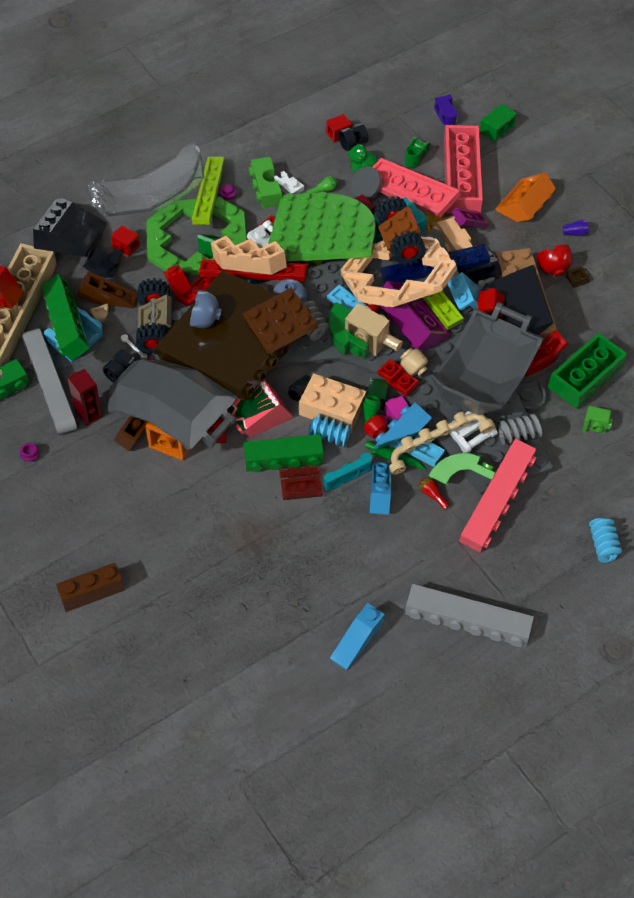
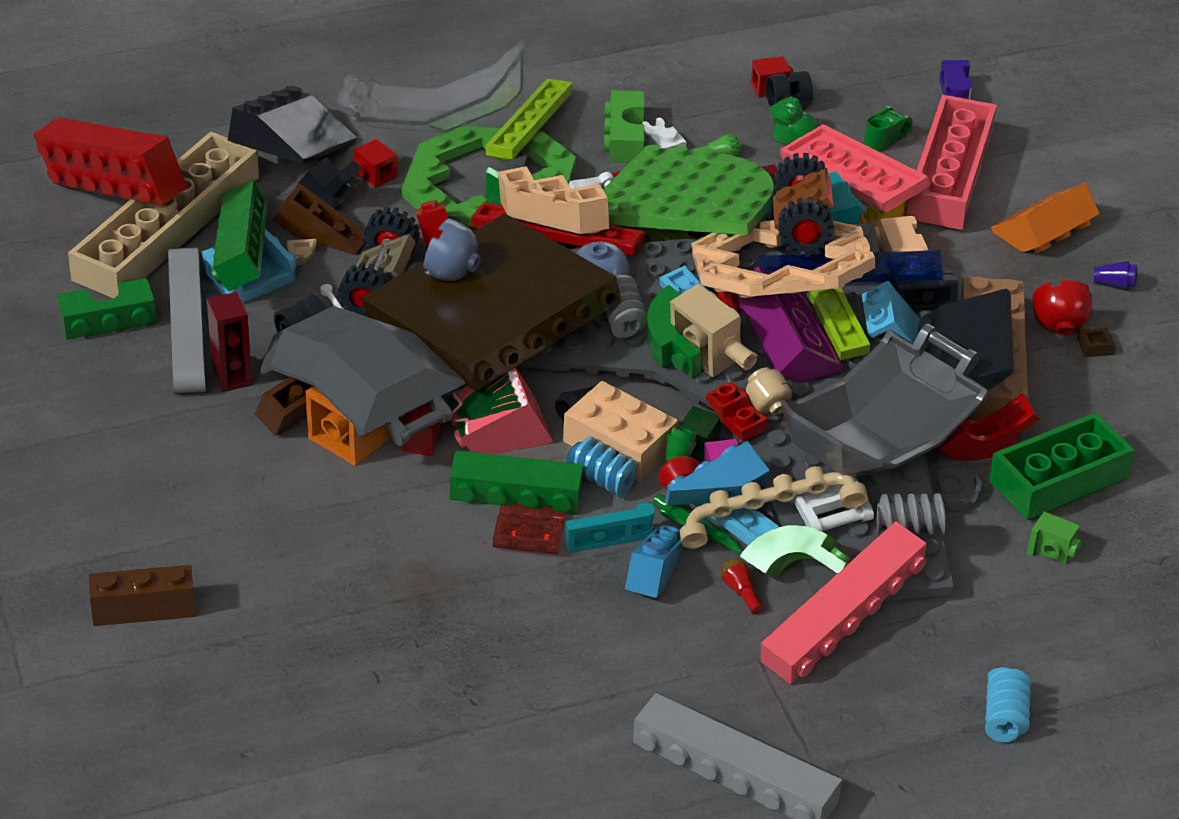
camera: 15 degrees right, 15 degrees down
(29, 452) = (120, 405): magenta plate -> none
(228, 192) = (562, 130): magenta plate -> none
(280, 320) = (564, 284): reddish brown plate -> none
(358, 636) = (543, 750): dark azure slope -> none
(366, 182) = (785, 144): dark grey tile -> none
(469, 218) = (937, 224): magenta plate -> none
(489, 299) = (916, 319): red brick -> none
(498, 122) = (1036, 112): green brick -> none

